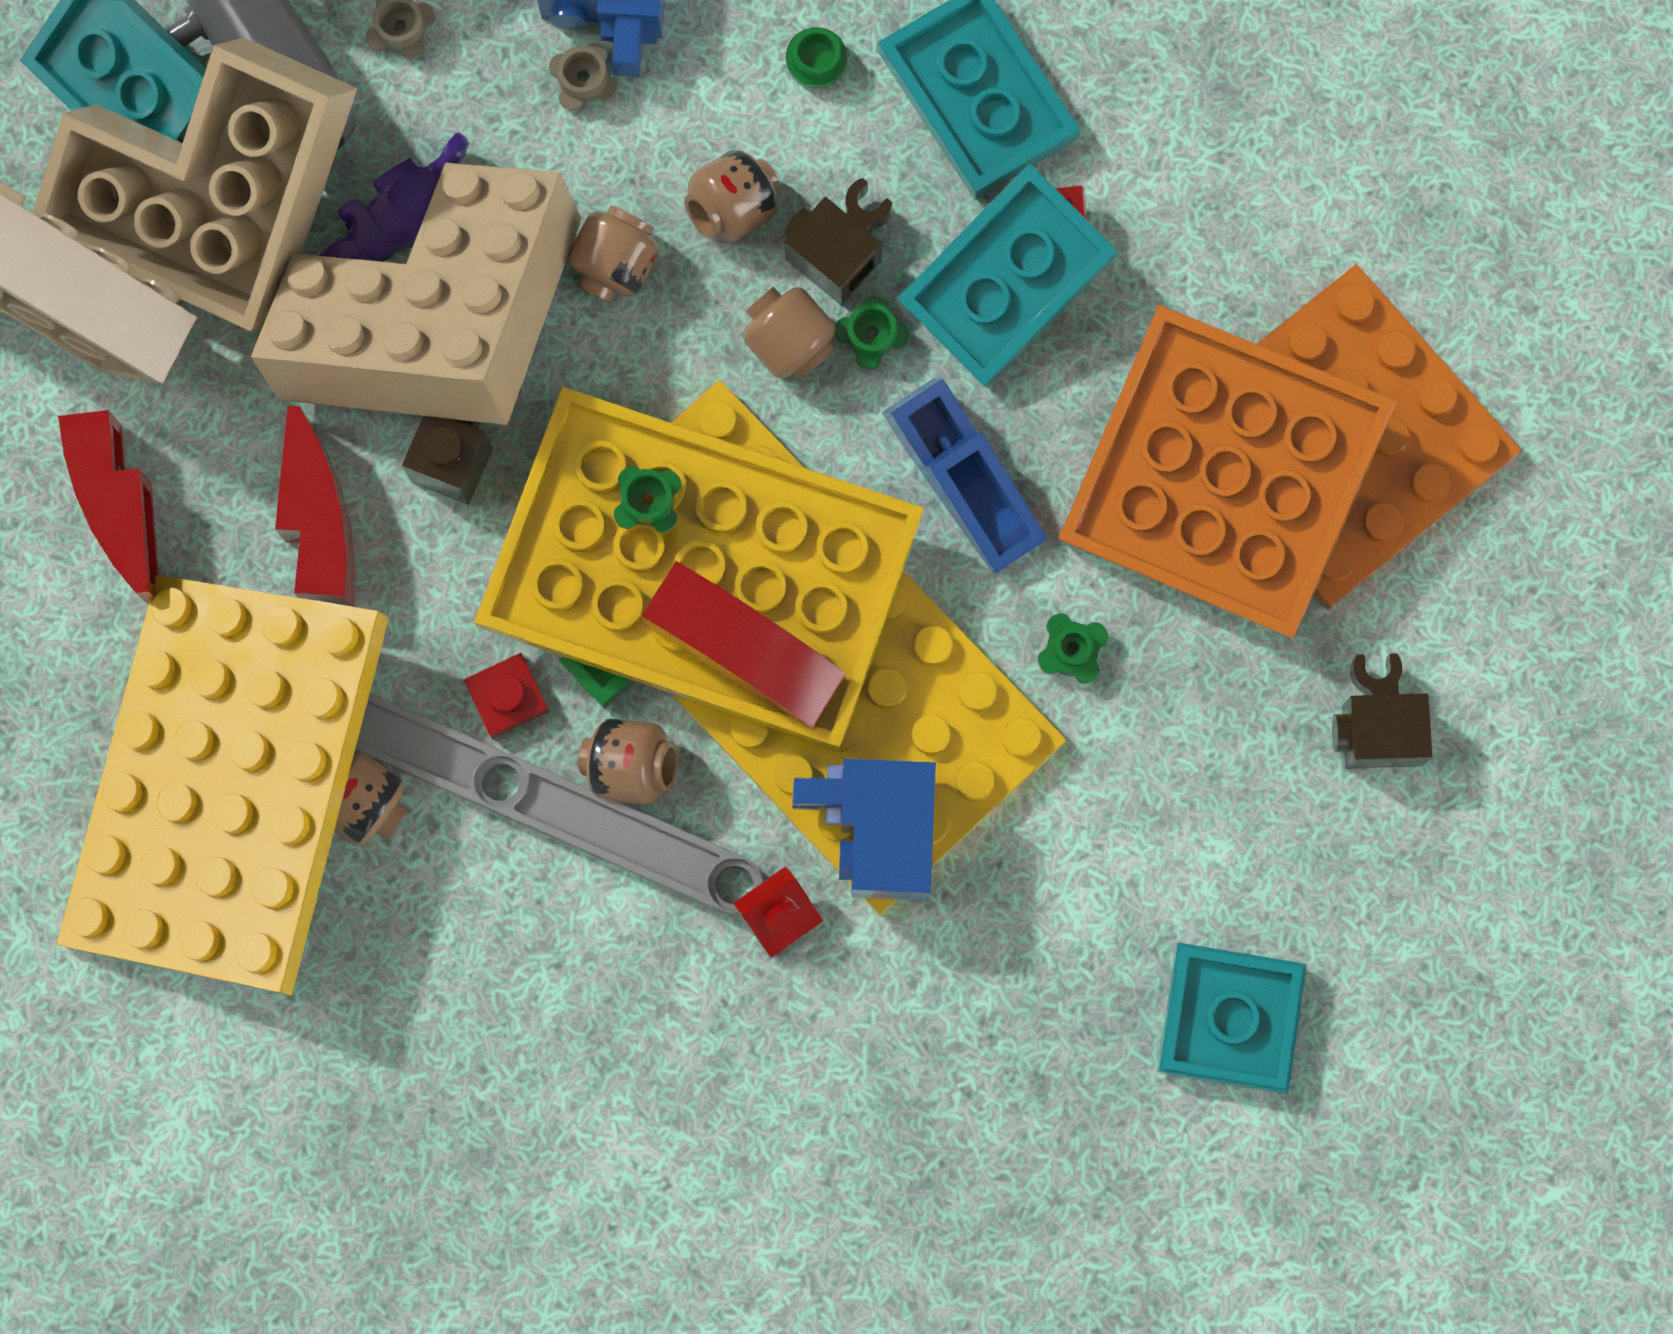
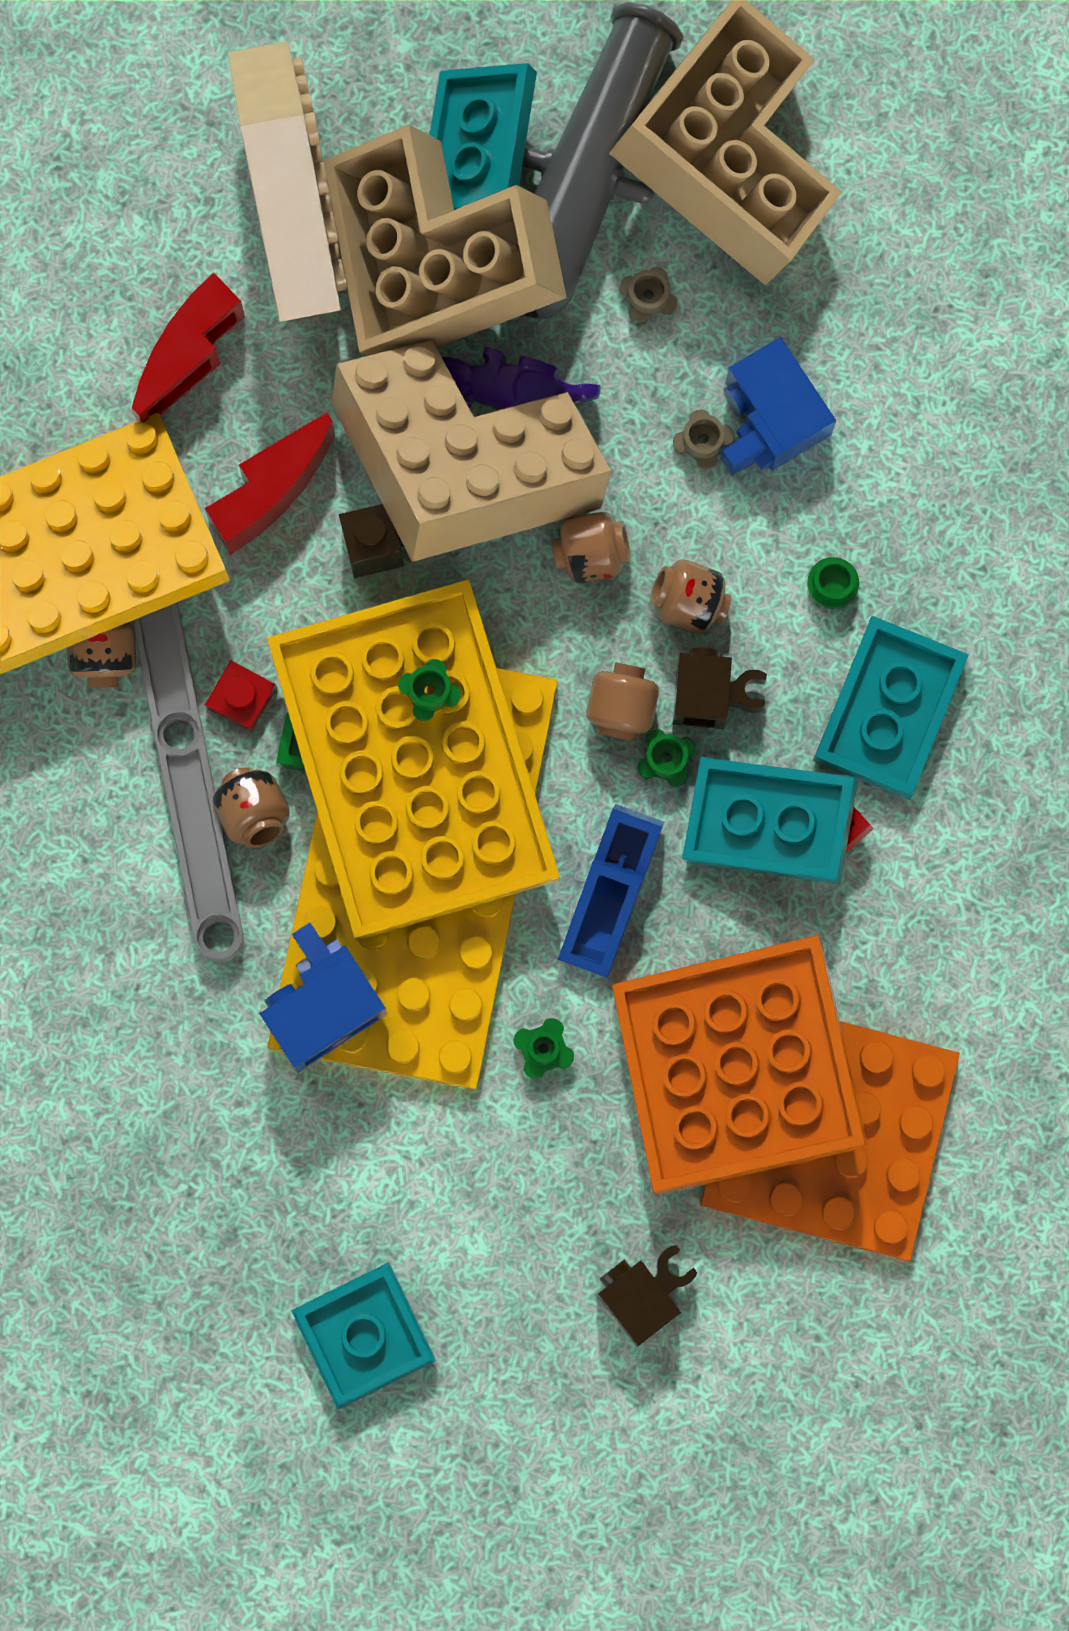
camera: 50 degrees right, 0 degrees up
(742, 645) = (372, 823): red slope -> none
(778, 912) = (219, 978): red plate -> none

